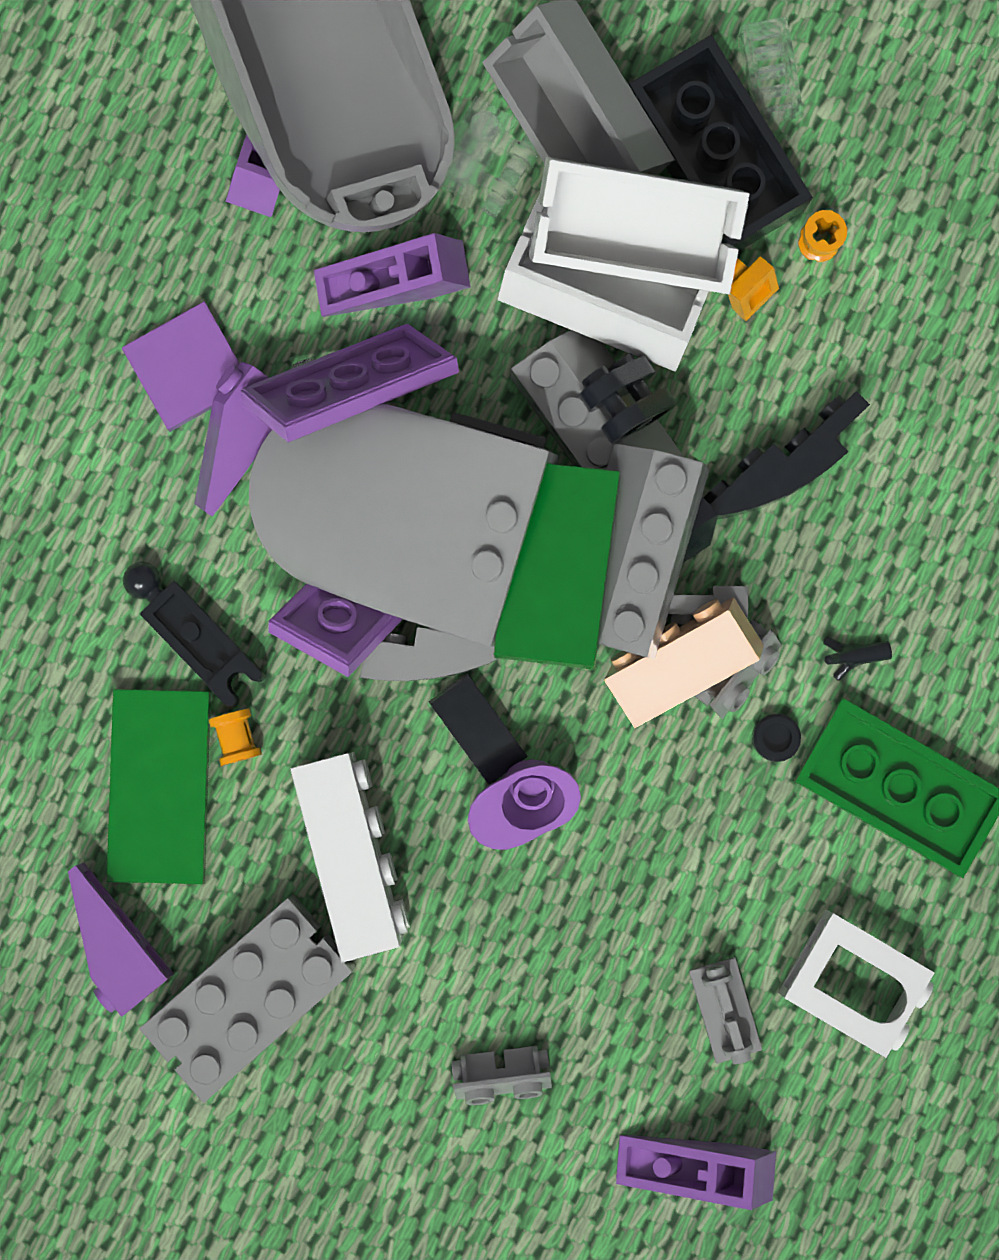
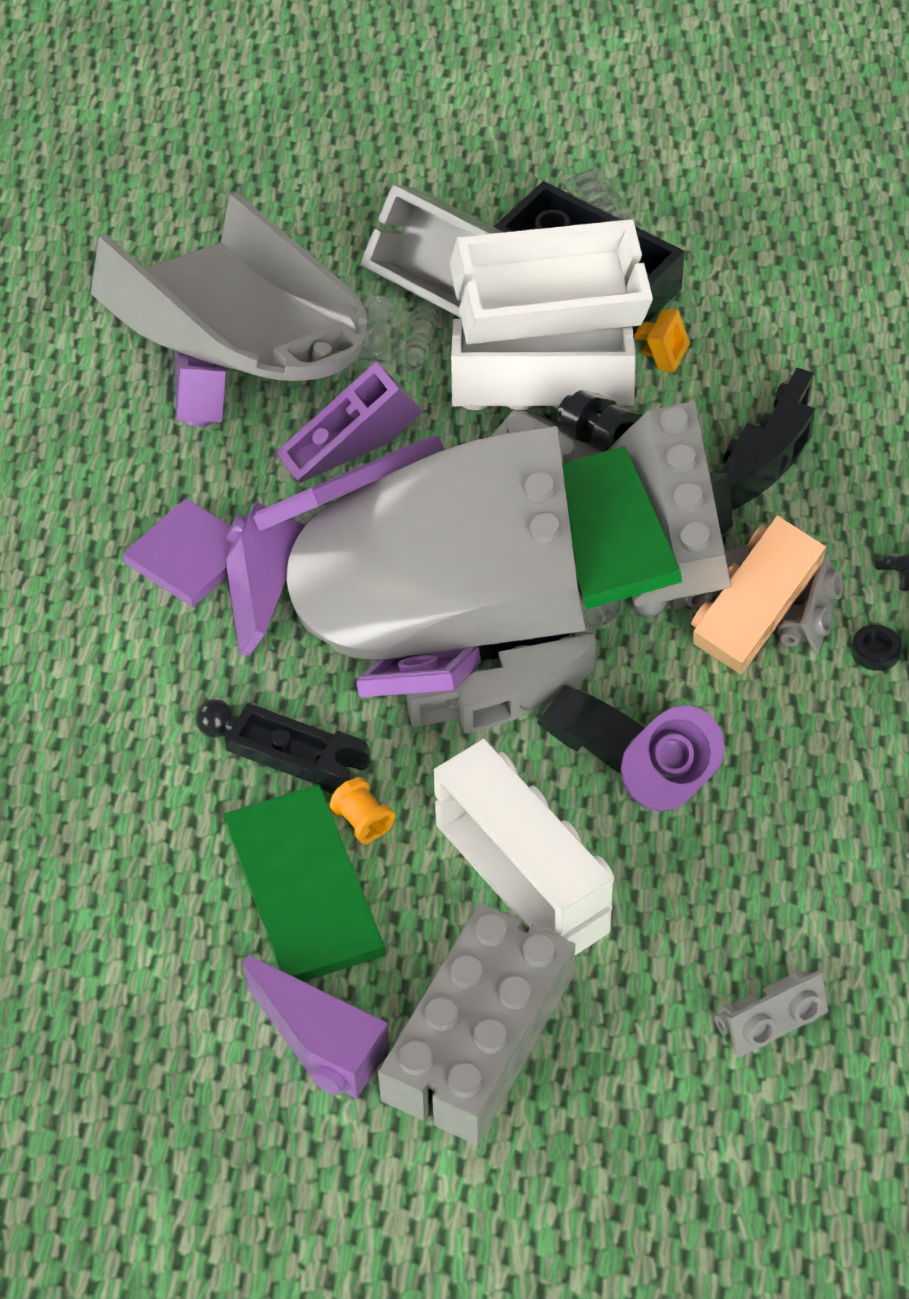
camera: 15 degrees left, 35 degrees down
(822, 222) = (701, 282): light orange bush -> none

